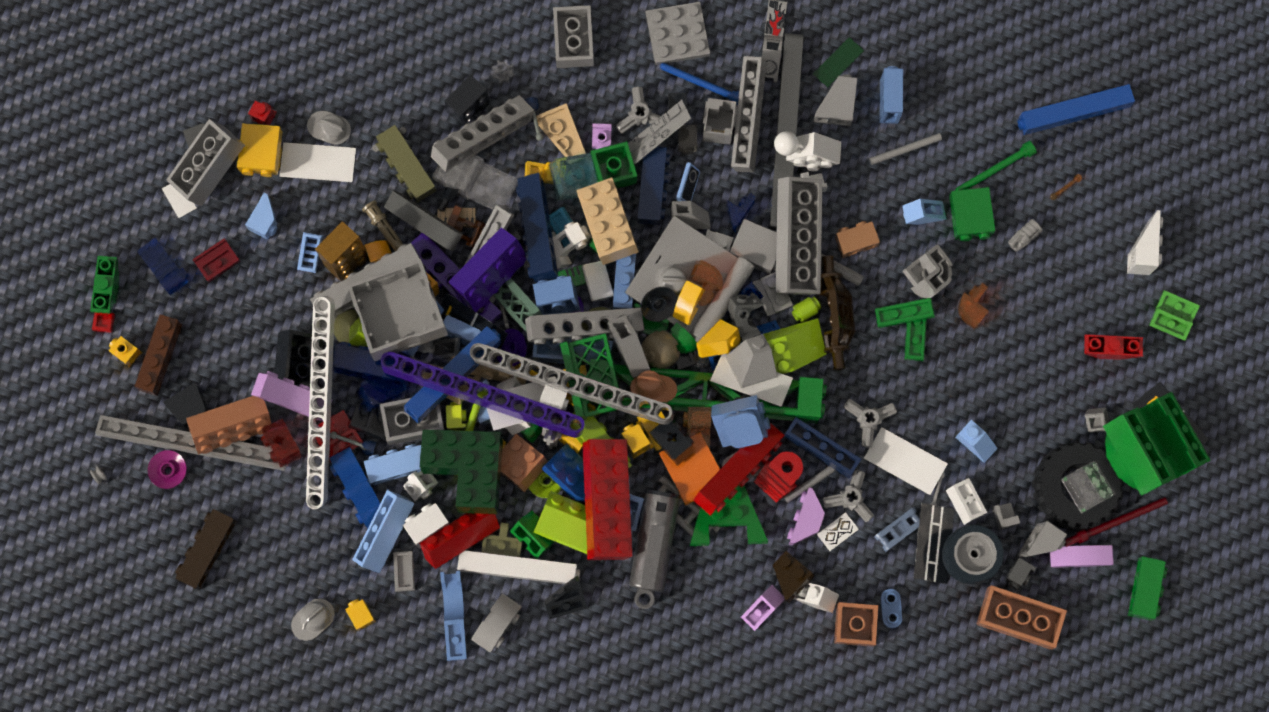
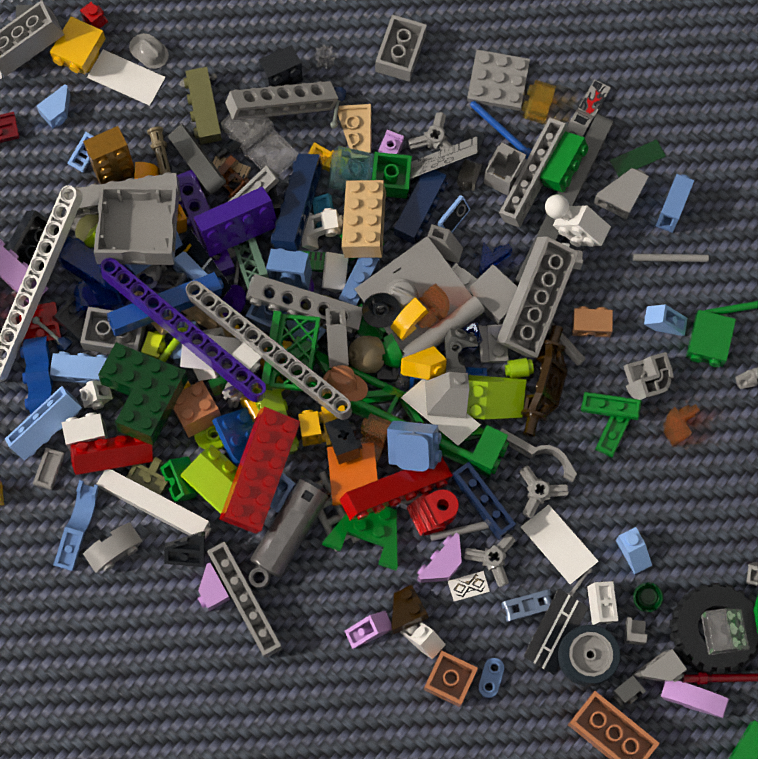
camera: 20 degrees right, 5 degrees down
(604, 626) = (211, 590): none -> lavender slope
(639, 624) = (244, 600): none -> light grey brick
(725, 41) = (539, 102): none -> clear yellow brick
(773, 94) = (564, 162): none -> green brick
(845, 384) = (530, 451): none -> light grey piece
(1005, 479) = (648, 597): none -> dark green hair

